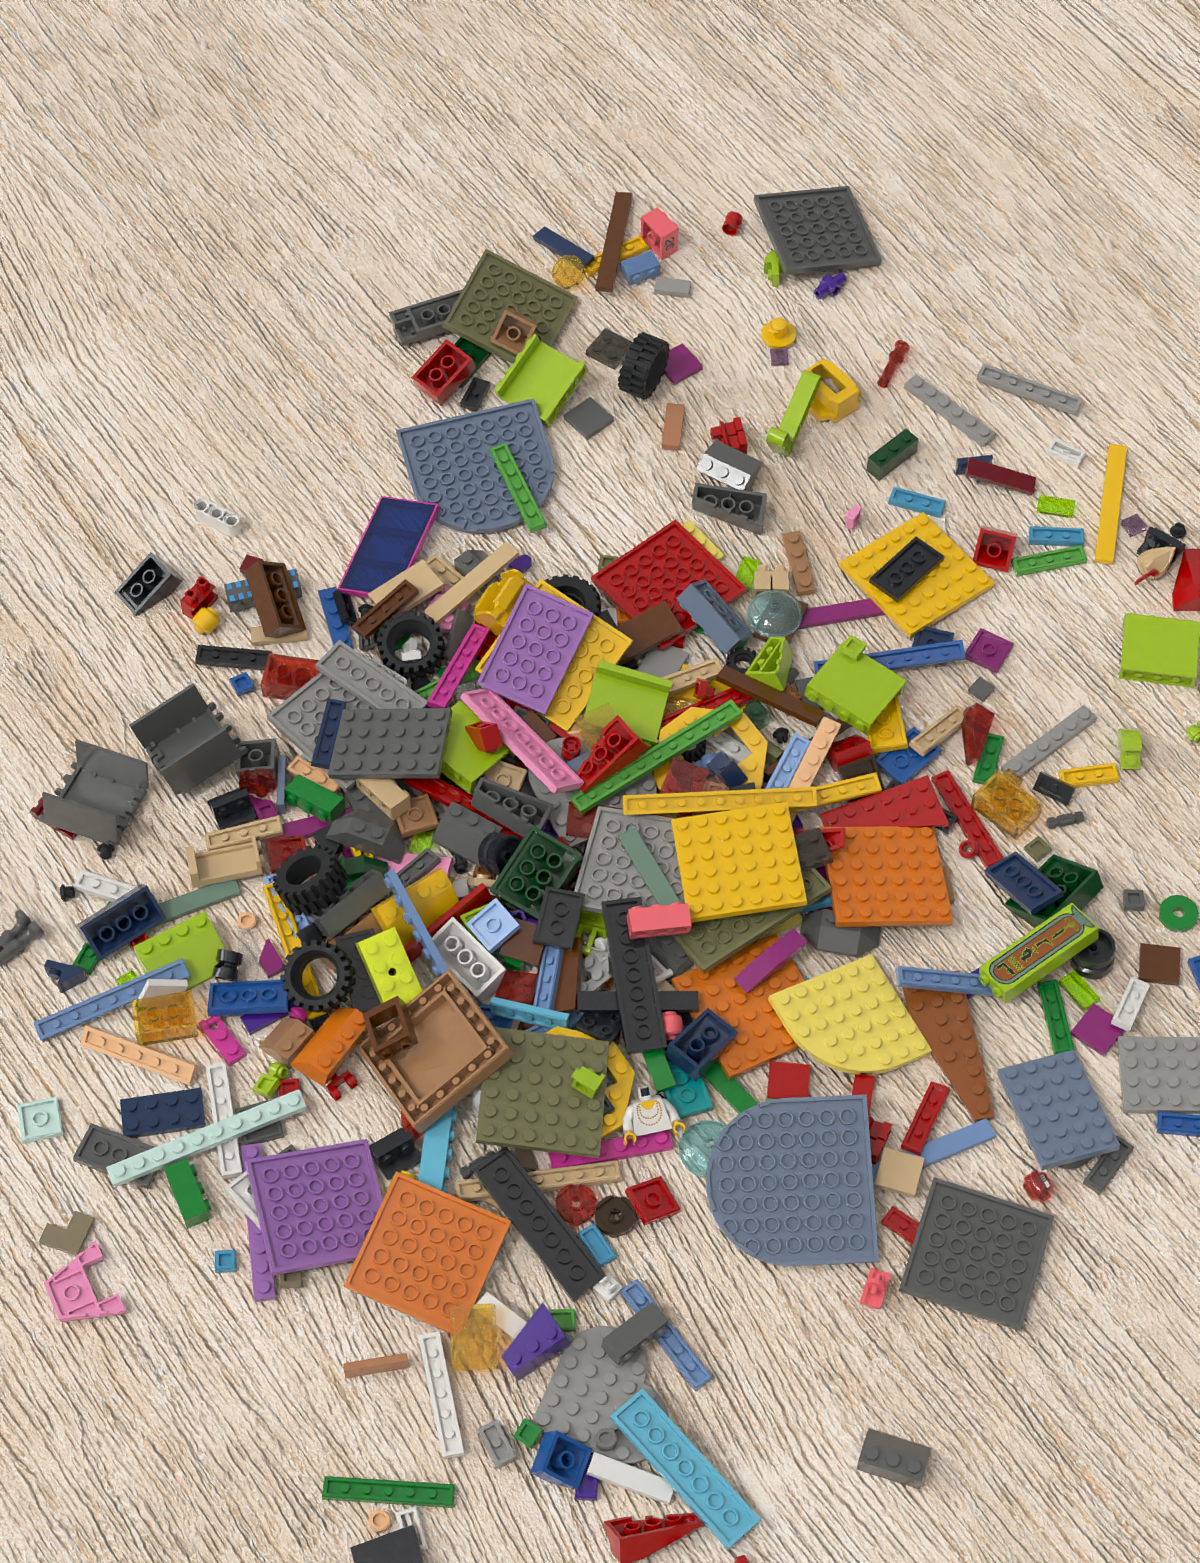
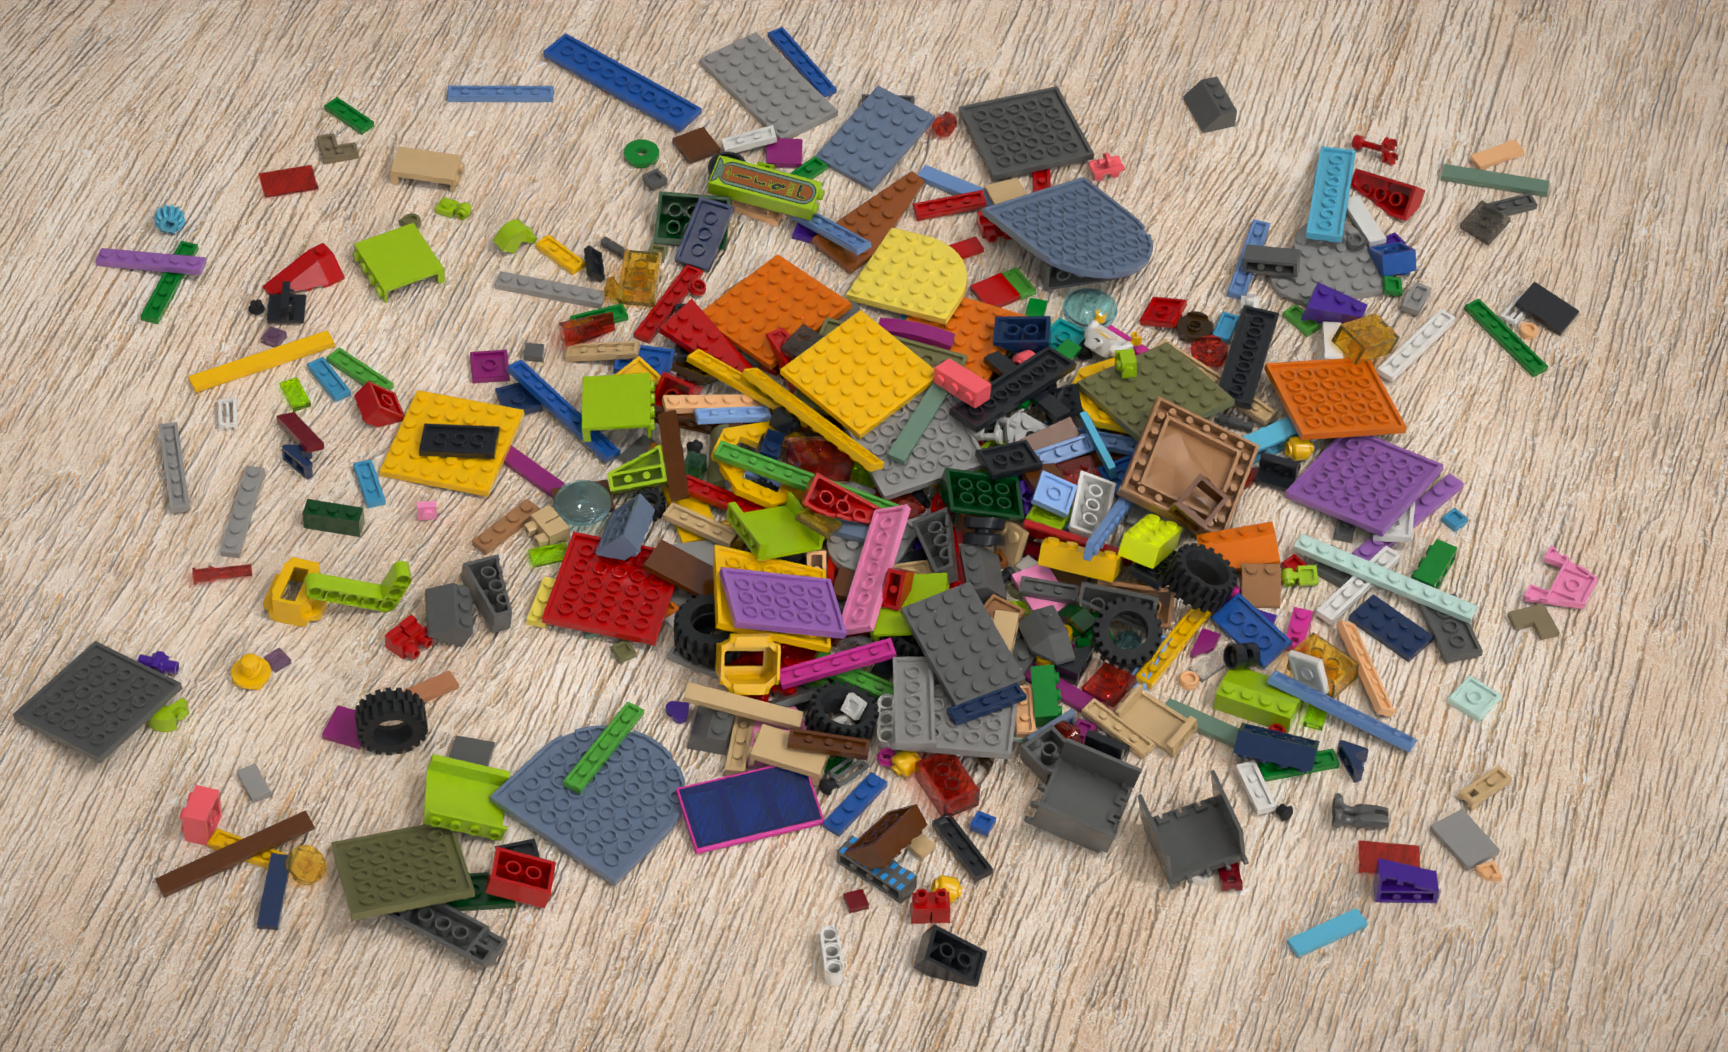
camera: 130 degrees left, 10 degrees down
(310, 933) = (1167, 627): black tile -> none
(345, 607) = (840, 798): black tile -> none
(376, 1365) = (1435, 388): nougat tile -> none
(513, 331) = (429, 841): medium nougat slope -> none
(571, 748) = (849, 539): red wheel -> none
(609, 348) = (372, 788): clear smoke plate -> none
(640, 267) = (251, 815): medium blue brick -> none
(702, 689) = (705, 504): red tile -> none
(732, 223) = (135, 777): red wheel -> none
(853, 647) = (587, 412): lime plate -> none
(1154, 562) = (312, 301): tan piece -> none

